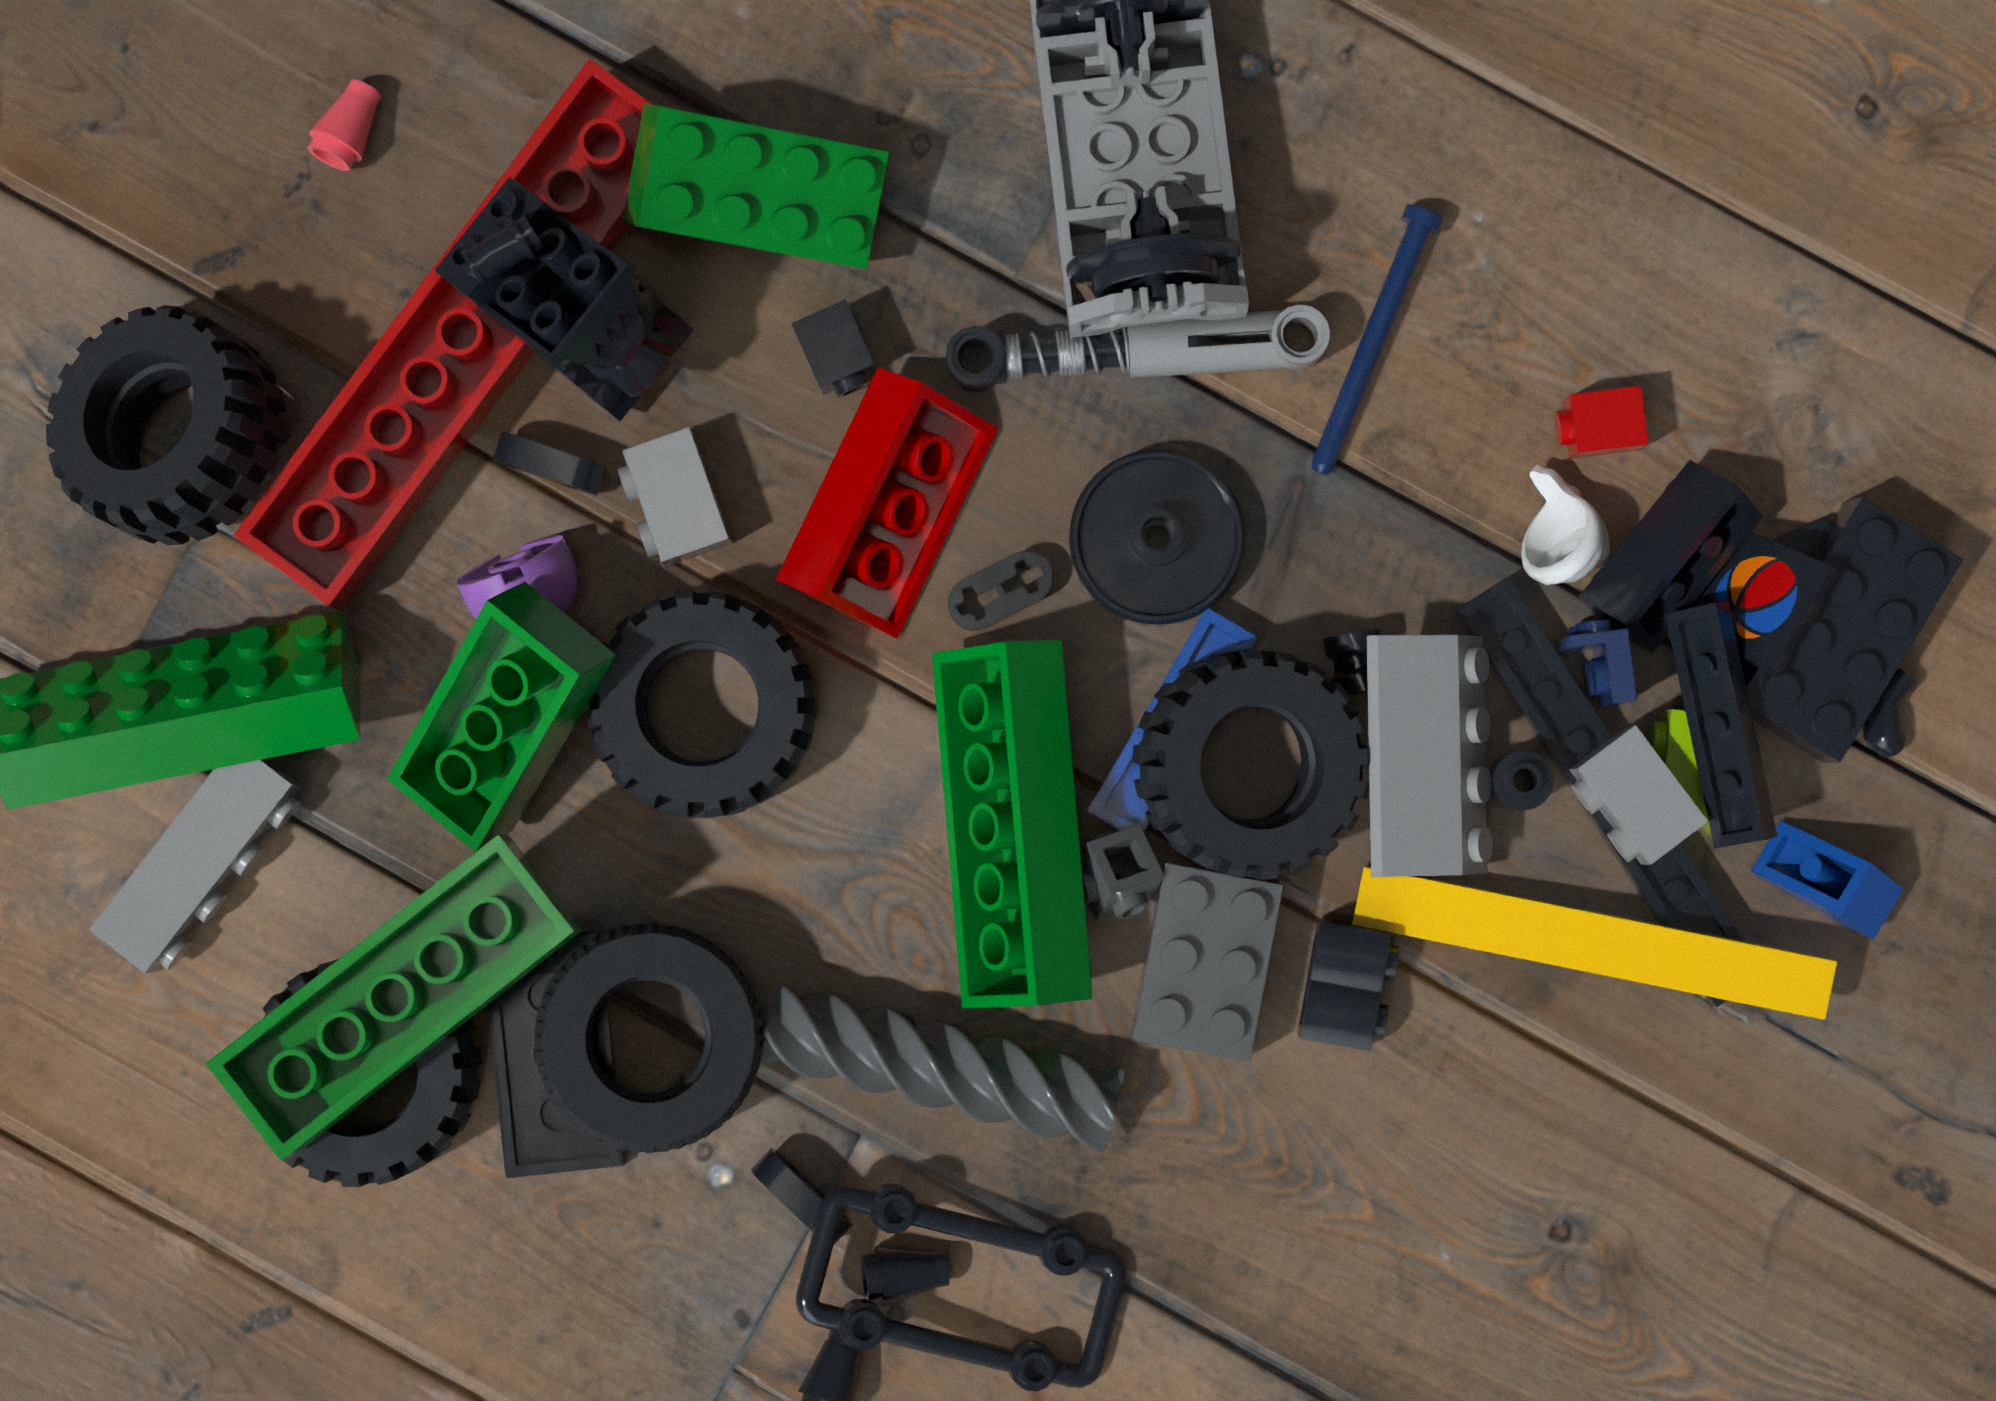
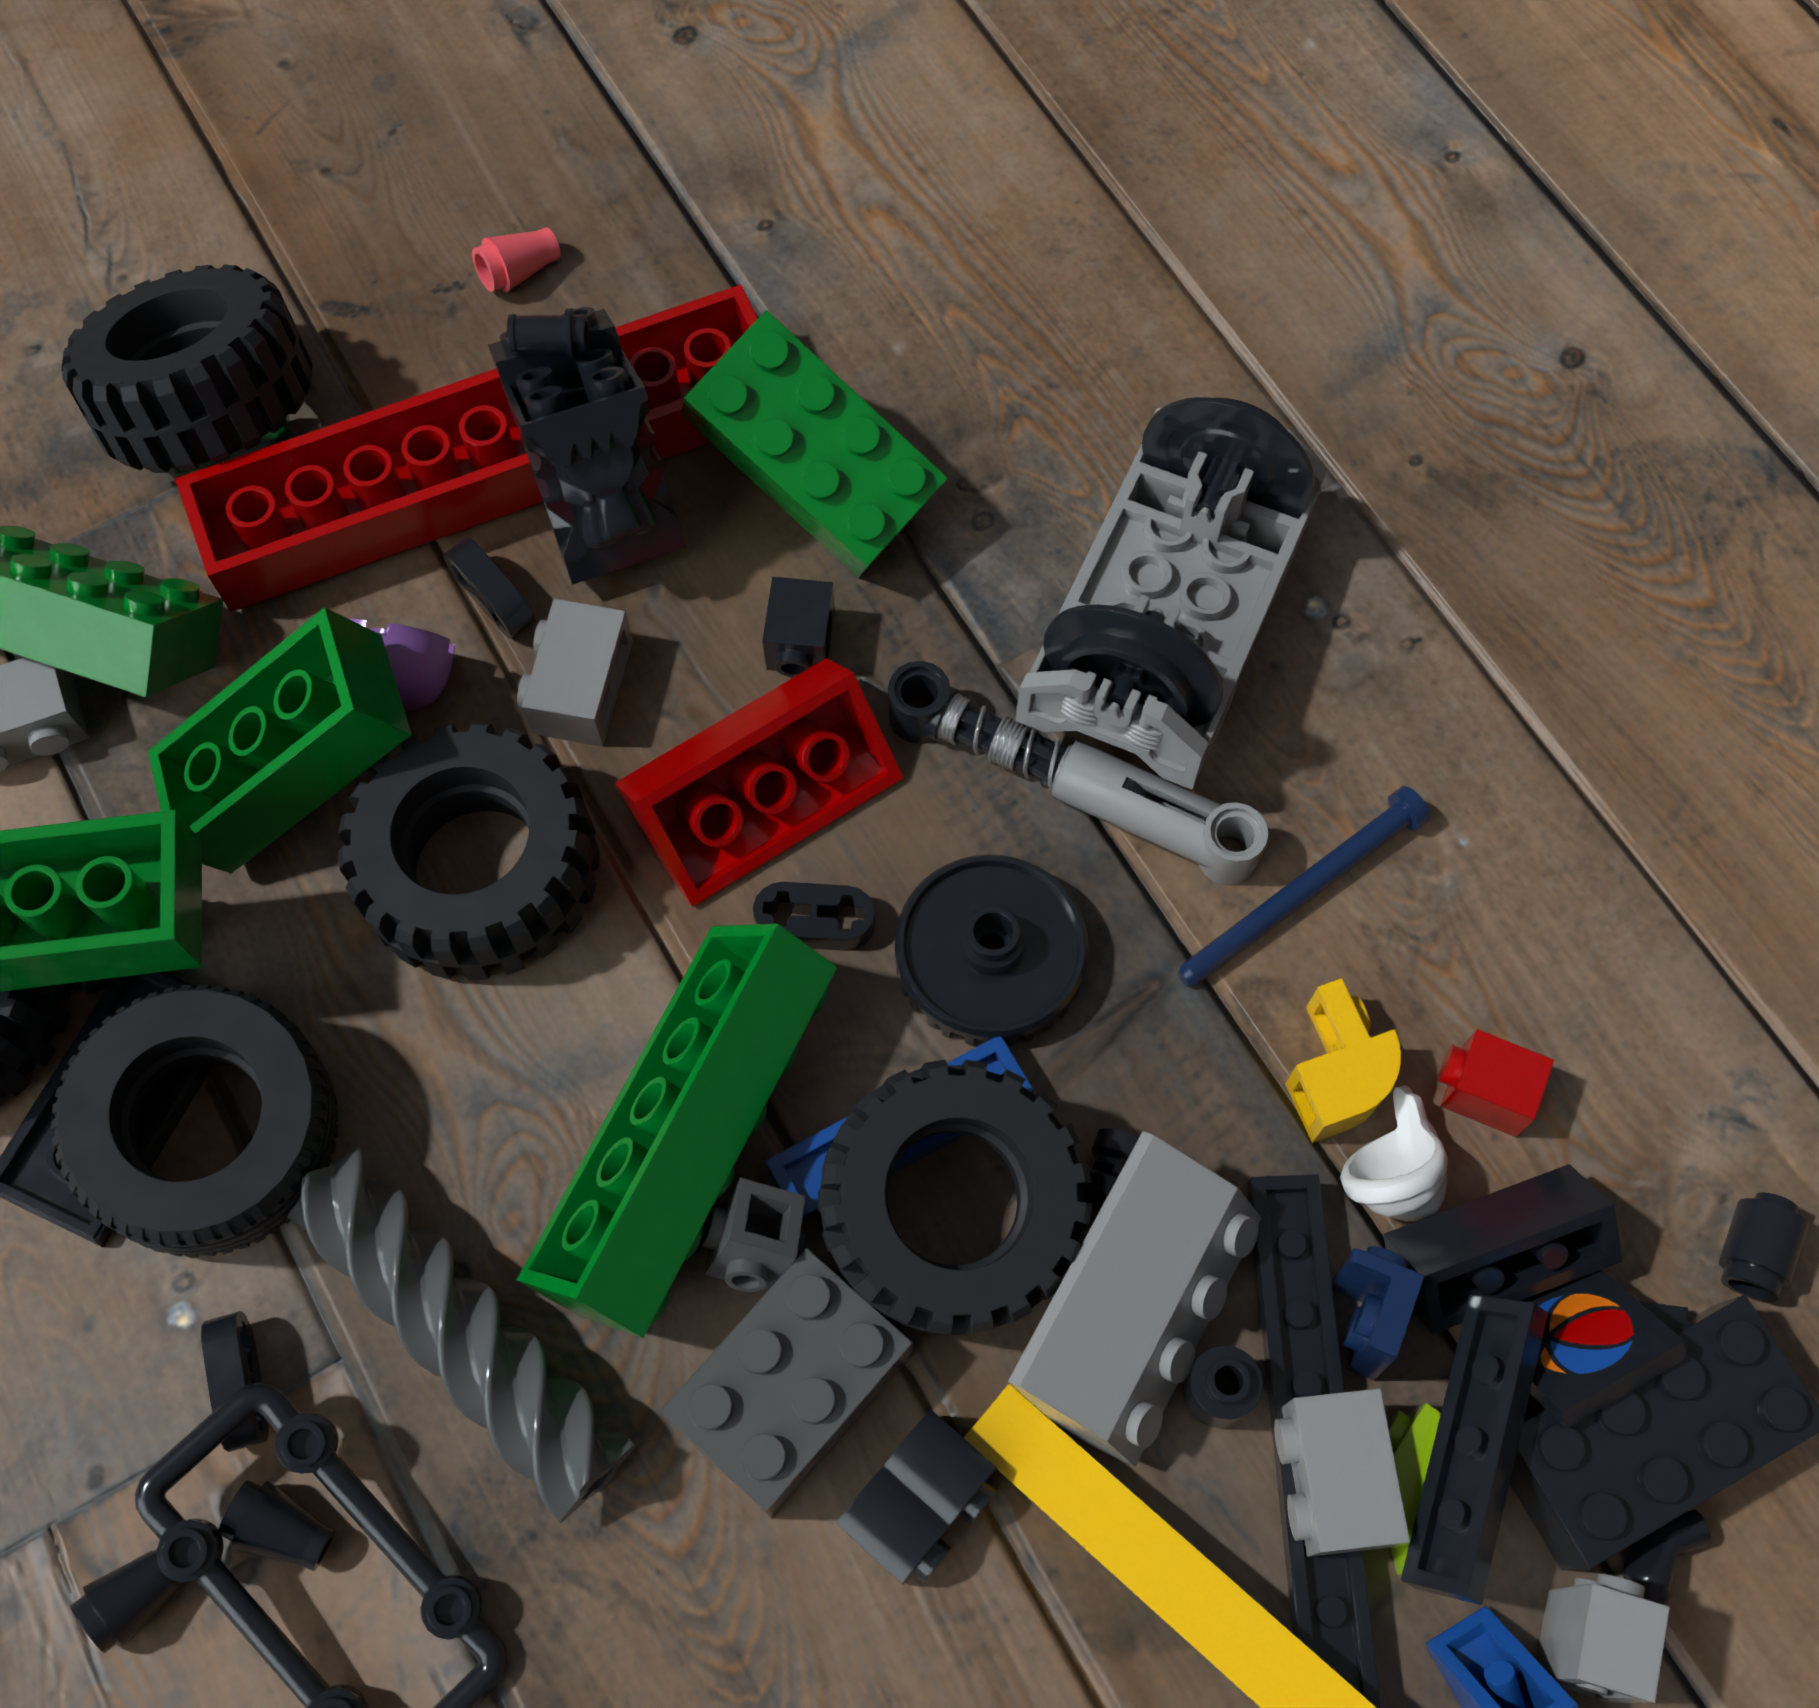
camera: 25 degrees right, 20 degrees down
(1496, 480) = (1354, 1075): none -> yellow brick
(1861, 438) = (1763, 1246): none -> black brick
(1869, 805) = (1604, 1639): none -> light grey brick

